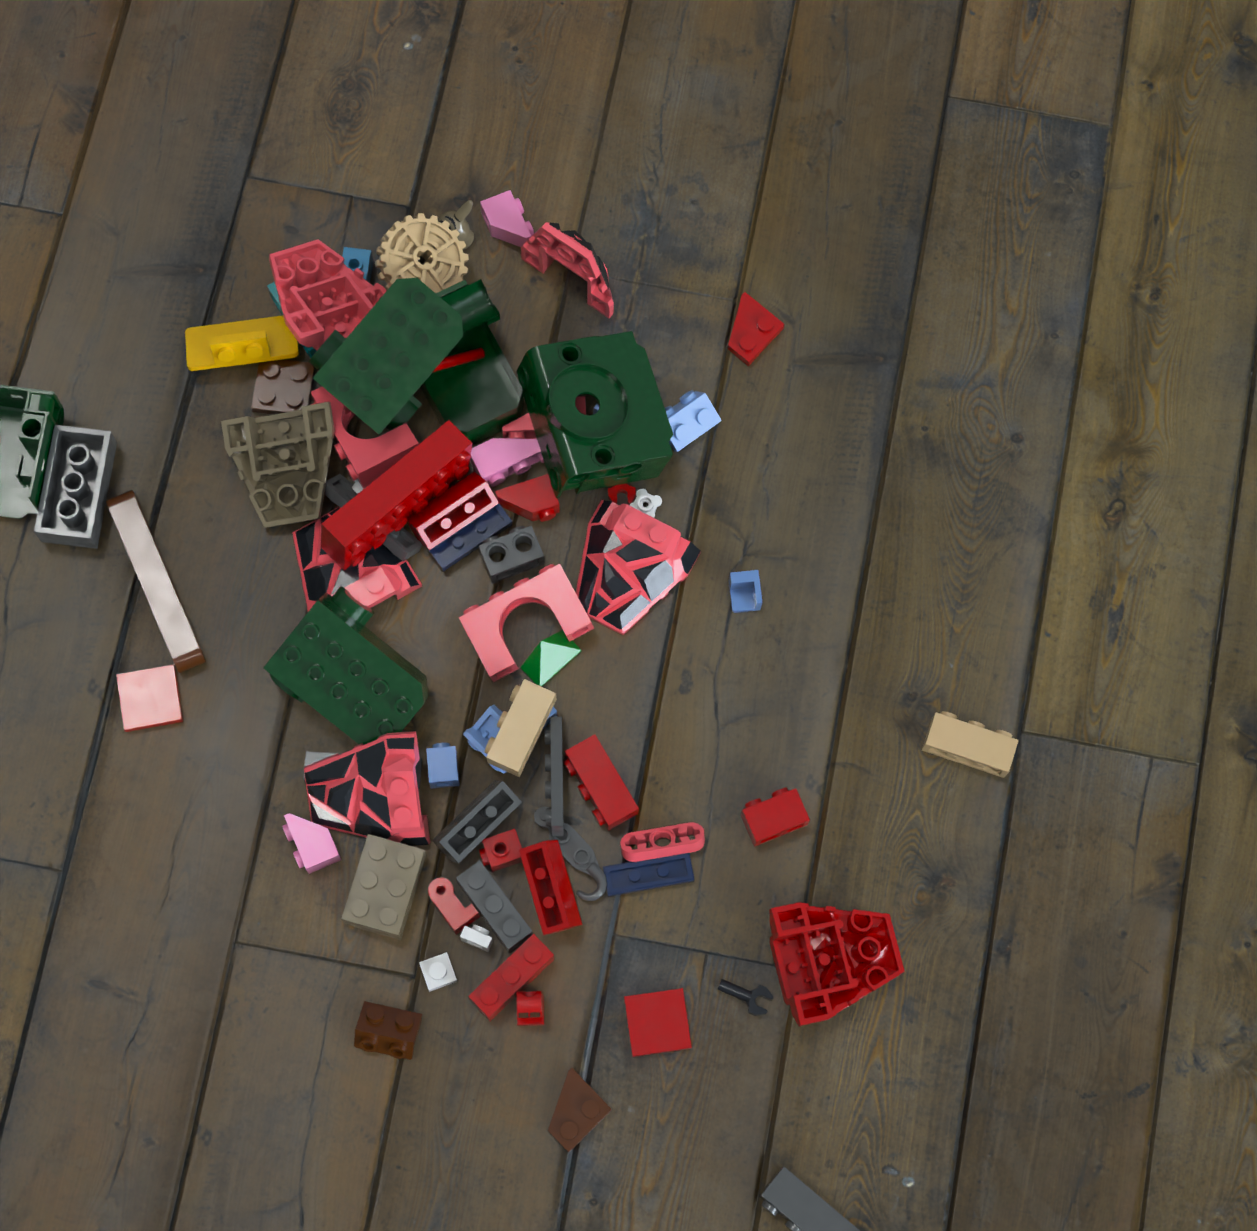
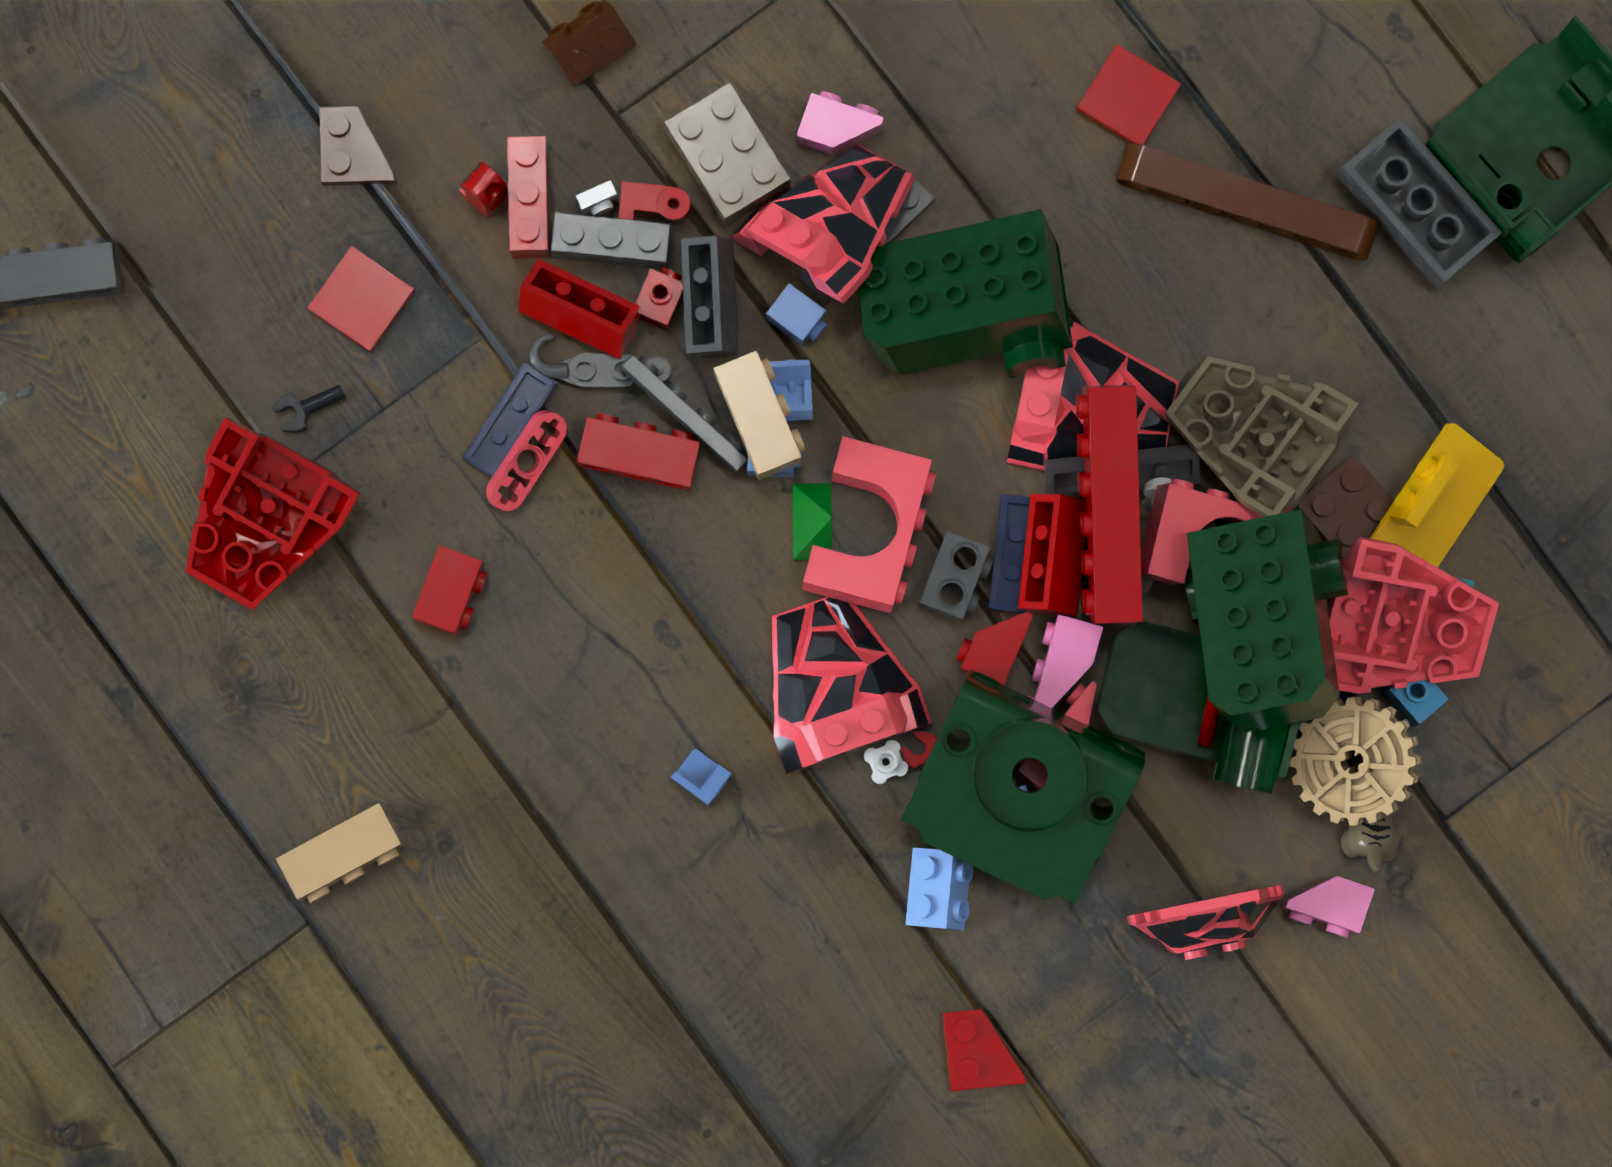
camera: 135 degrees right, 10 degrees up
(438, 971) = (601, 137): white plate -> none

